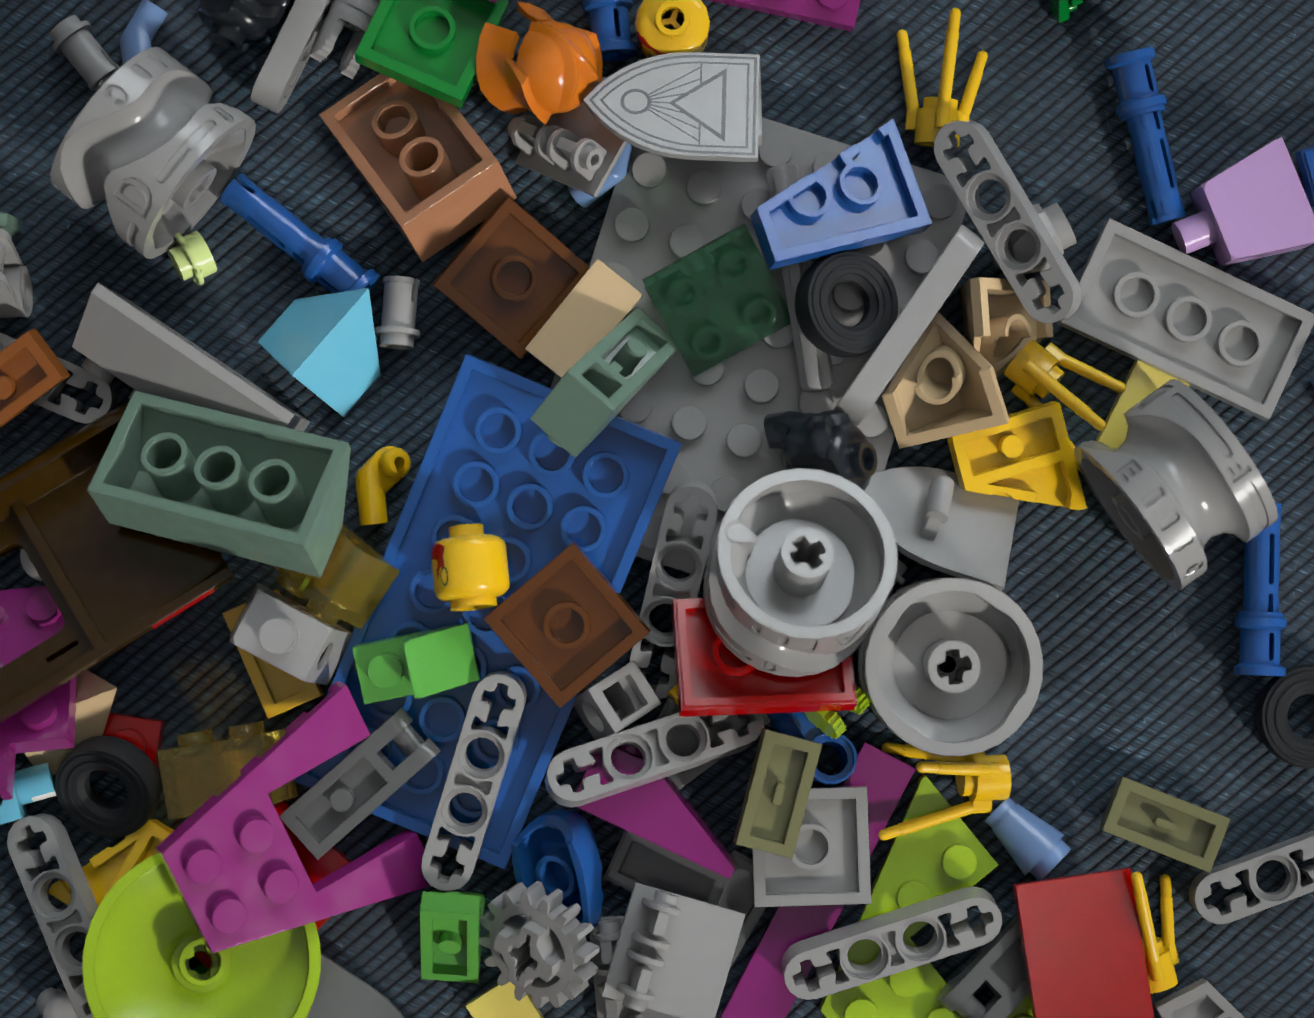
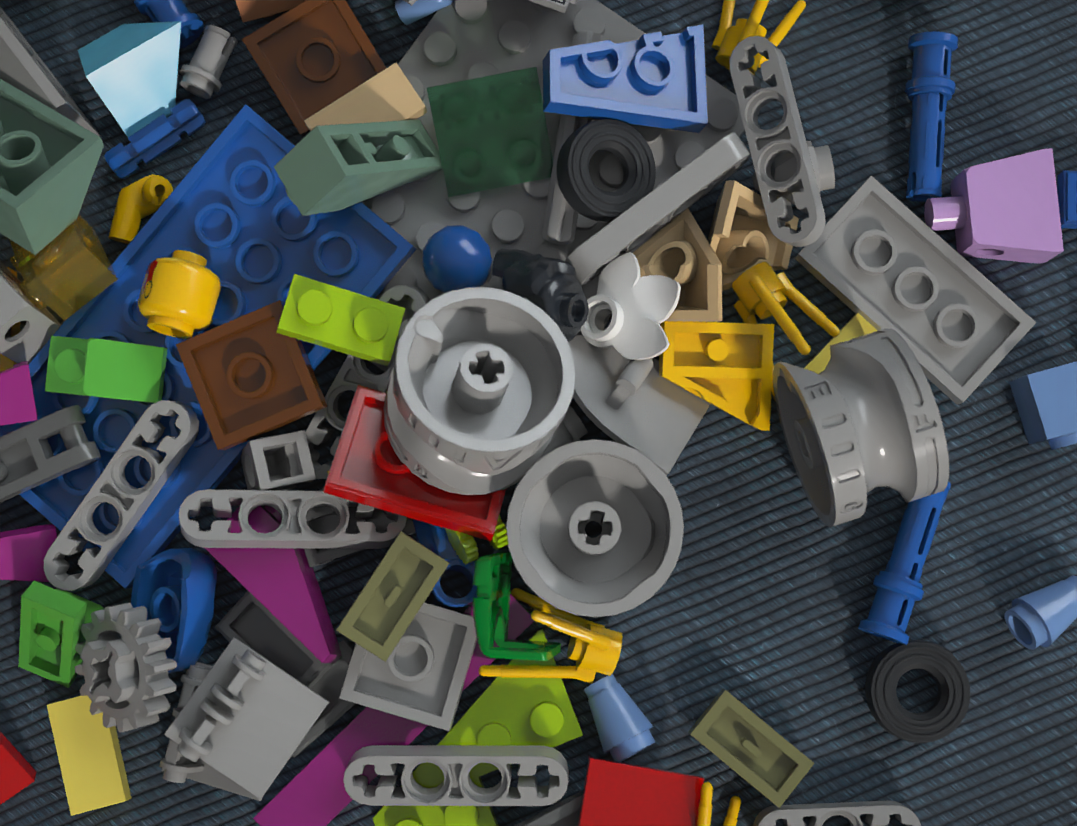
camera: 20 degrees right, 5 degrees down
(374, 405) = (155, 139): none -> blue axle
(639, 543) = (341, 320): none -> lime plate
(727, 443) = (456, 259): none -> blue piece
(876, 779) = (492, 609): none -> green piece
(921, 432) = (636, 309): none -> white plate

